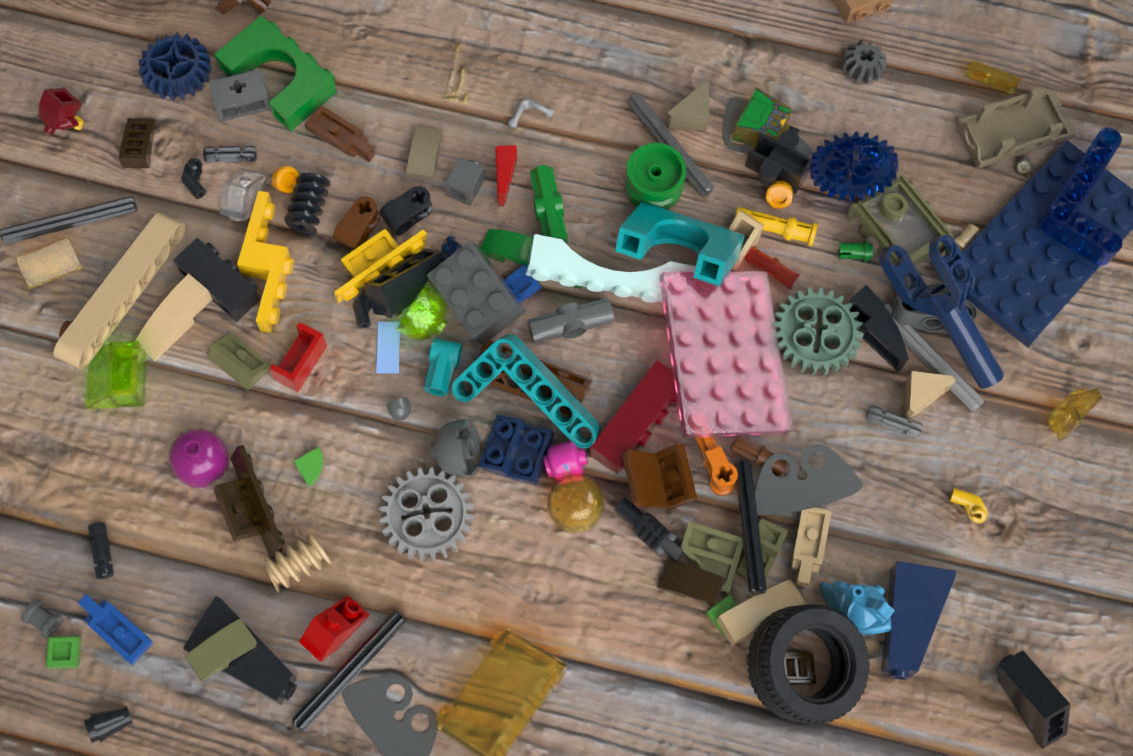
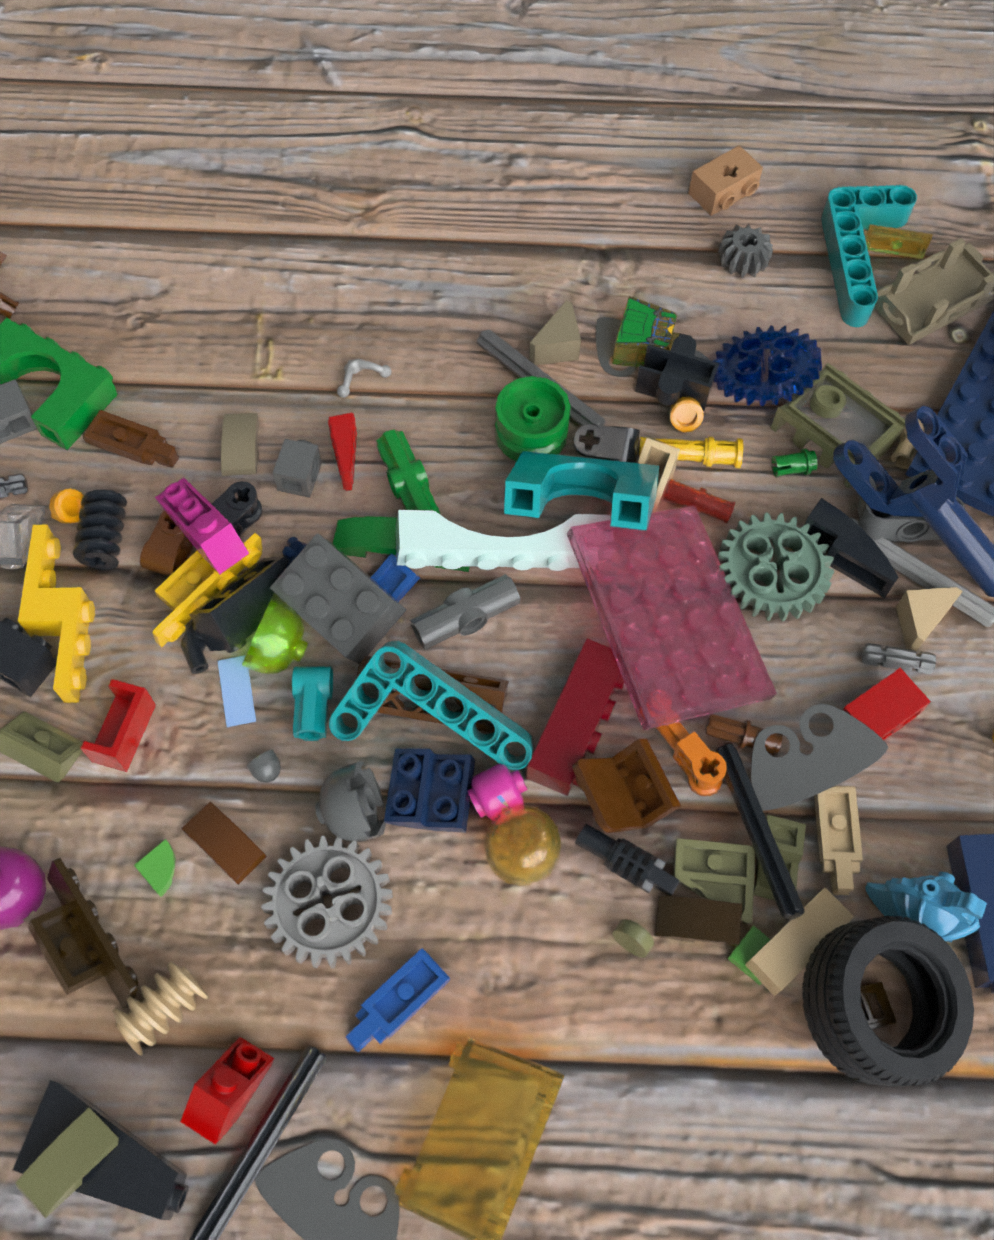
camera: 10 degrees left, 5 degrees down
(360, 457) = (224, 842): none -> reddish brown slope
(384, 216) = (202, 525): none -> dark pink slope
(463, 593) = (397, 1000): none -> blue hinge
(640, 585) = (633, 938): none -> olive tile
(715, 208) = (613, 444): none -> black piece
(873, 456) = (889, 704): none -> red panel
(971, 42) = (843, 220): none -> teal beam

